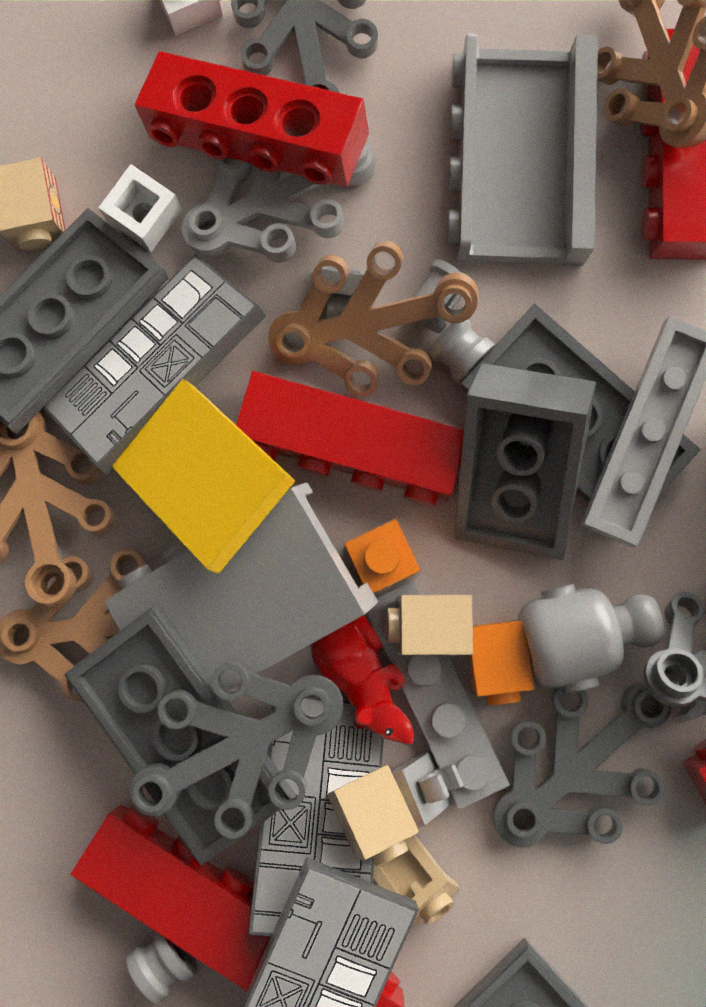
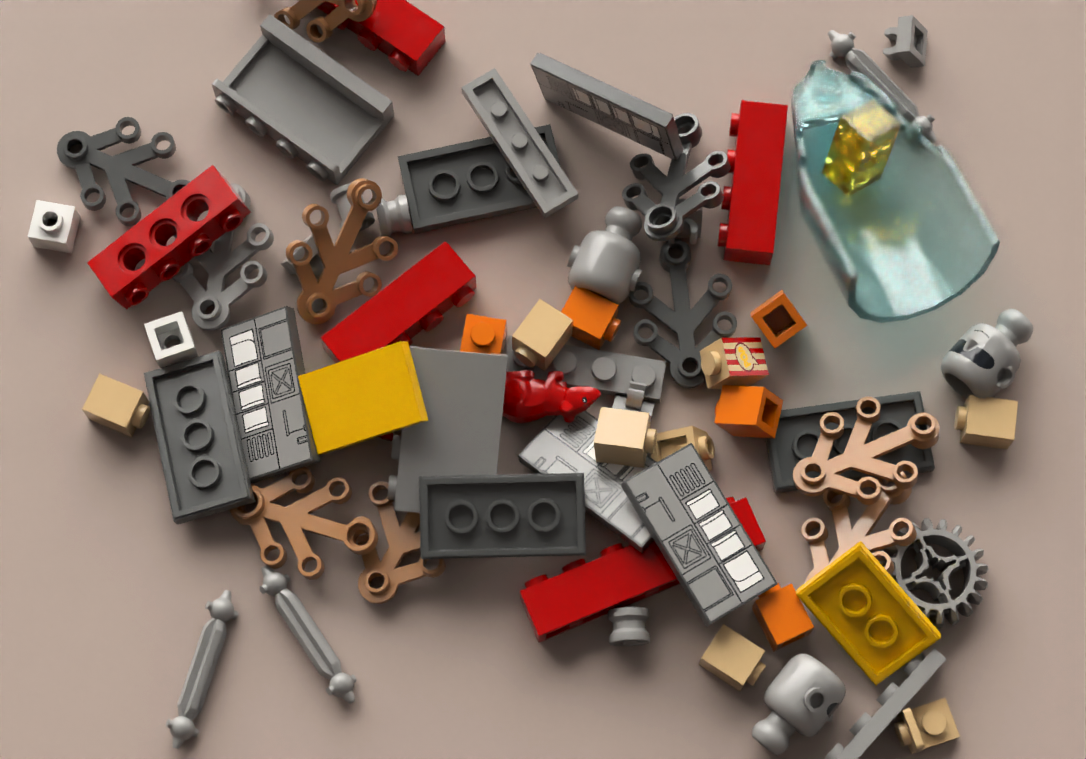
camera: 60 degrees left, 10 degrees down
(245, 741) = (532, 472): dark grey plant -> none
(514, 932) = (748, 411): none -> orange brick
(522, 459) = (485, 224): dark grey slope -> none
(562, 874) = (733, 362): none -> tan brick
(655, 893) = (778, 319): none -> orange brick

